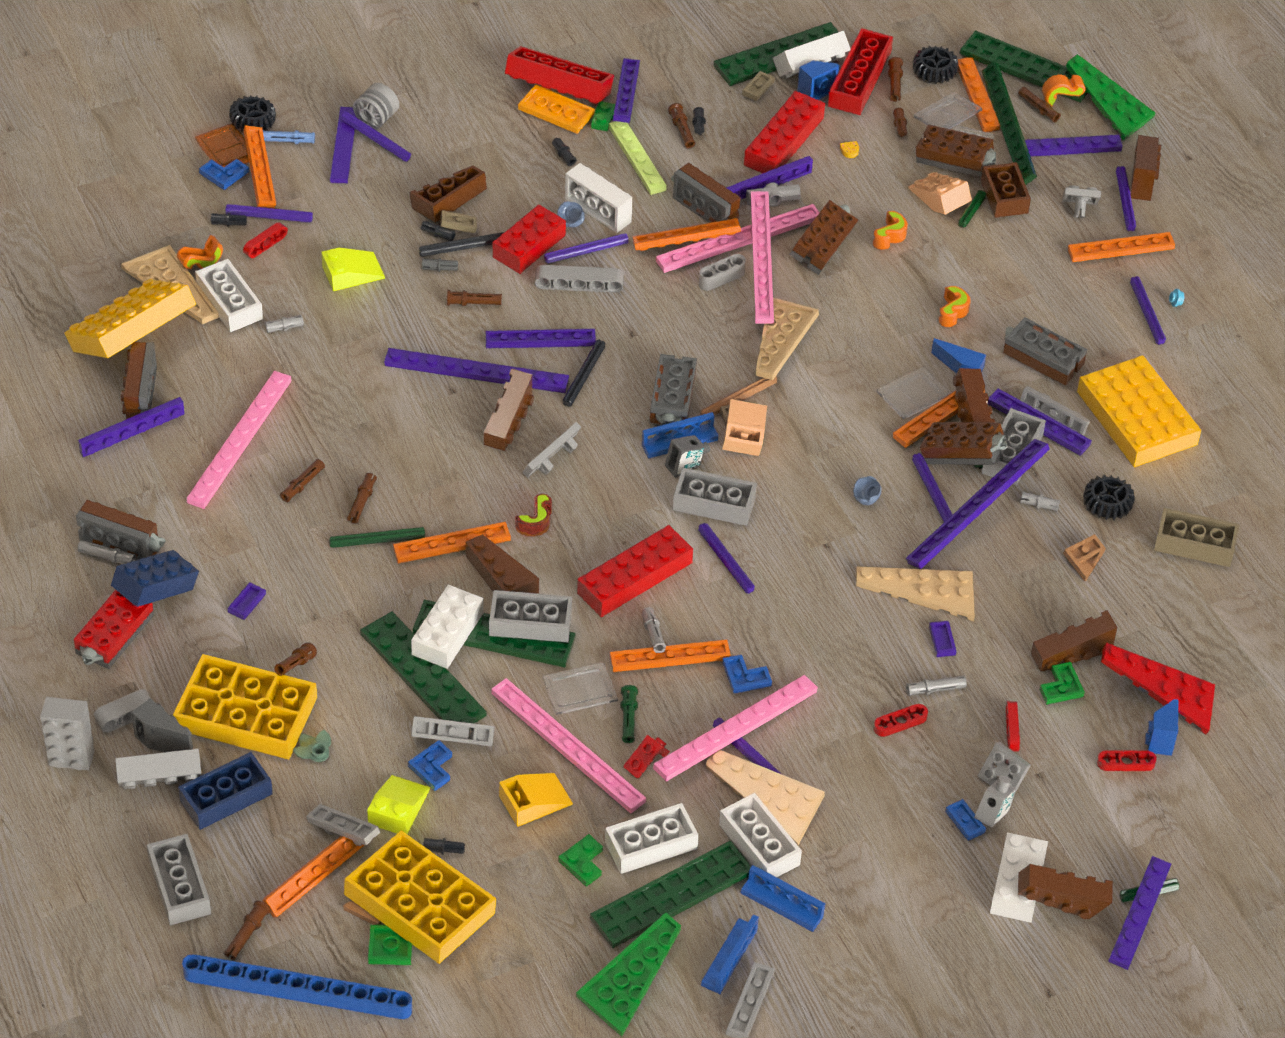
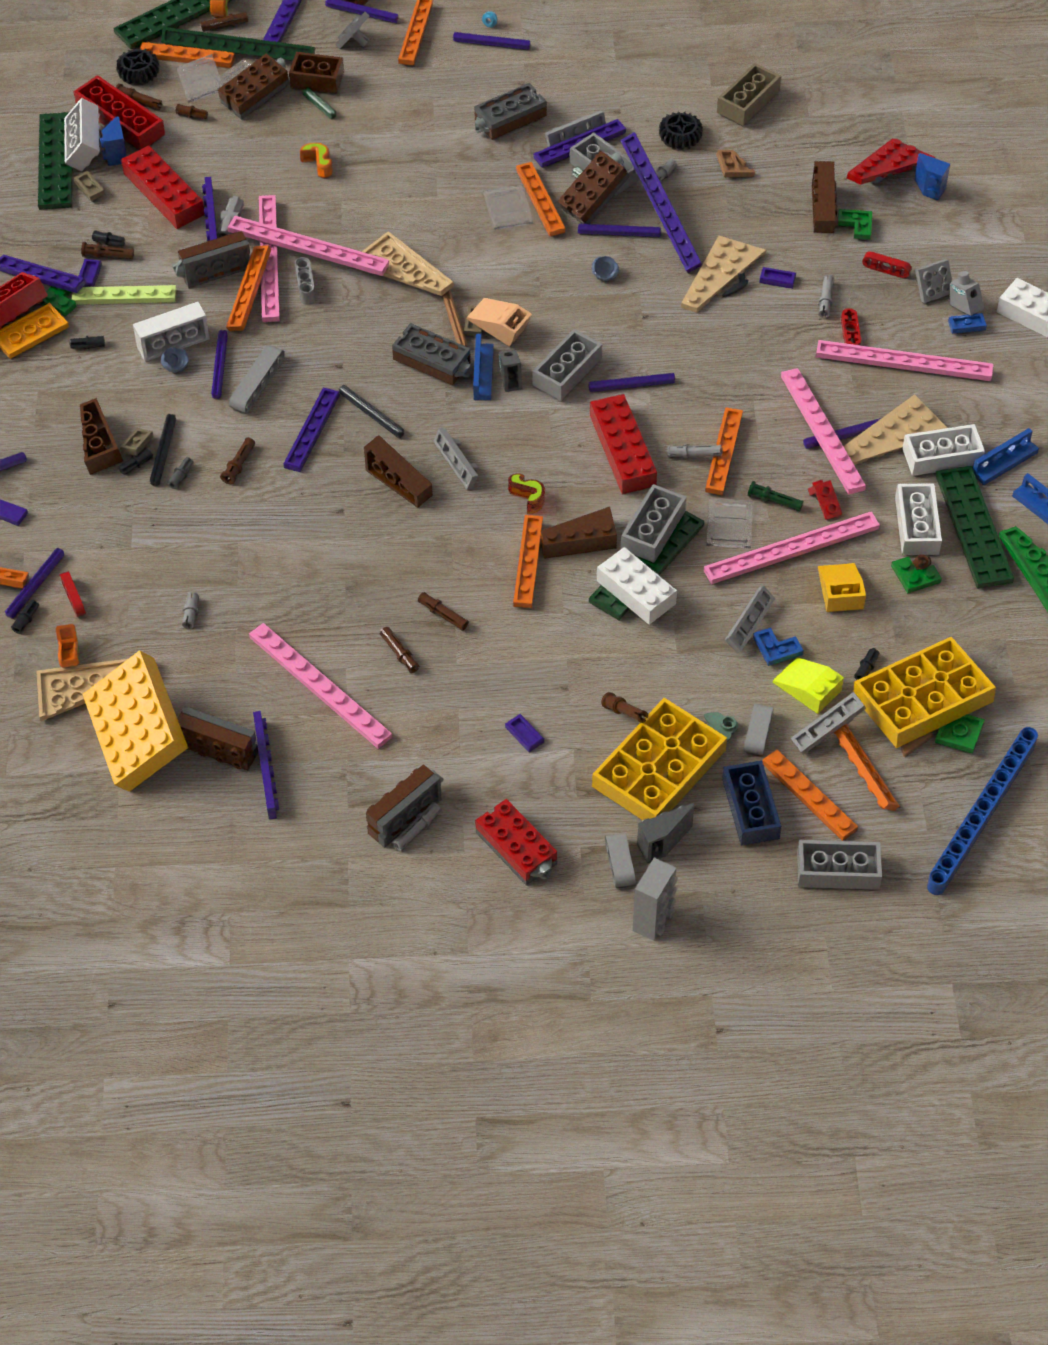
camera: 65 degrees left, 5 degrees up
(154, 578) = (483, 787): dark blue brick -> none
(158, 767) = (710, 844): light grey brick -> none
(229, 295) = (127, 636): white brick -> none
(251, 922) = (902, 825): reddish brown pin -> none
(262, 841) = (810, 795): none -> orange plate
(322, 776) = (758, 729): none -> light grey beam
(350, 267) = (147, 540): neon yellow slope -> none
(377, 537) = (494, 614): dark green axle -> none
(429, 681) = (675, 625): dark green plate -> none
(471, 369) = (323, 488): dark purple plate -> none
(529, 239) = (189, 397): red brick -> none
(592, 854) = (922, 561): none -> reddish brown axle
(650, 124) = (90, 271): none -> dark purple tile
(743, 679) = (765, 413): blue plate -> none
(824, 236) = (306, 199): reddish brown piece -> none
(850, 149) = (202, 154): yellow tile -> none
(879, 778) = (904, 360): none -> bright pink plate
(907, 607) = (738, 286): none -> black bar
(941, 192) = (291, 113): light nougat slope -> none
(957, 306) = (429, 145): orange animal -> none
(957, 356) = (488, 166): blue slope -> none
(971, 396) = (549, 169): reddish brown wedge -> none
(1112, 755) = (944, 208): red beam -> none
(1138, 411) = (600, 81): yellow brick -> none

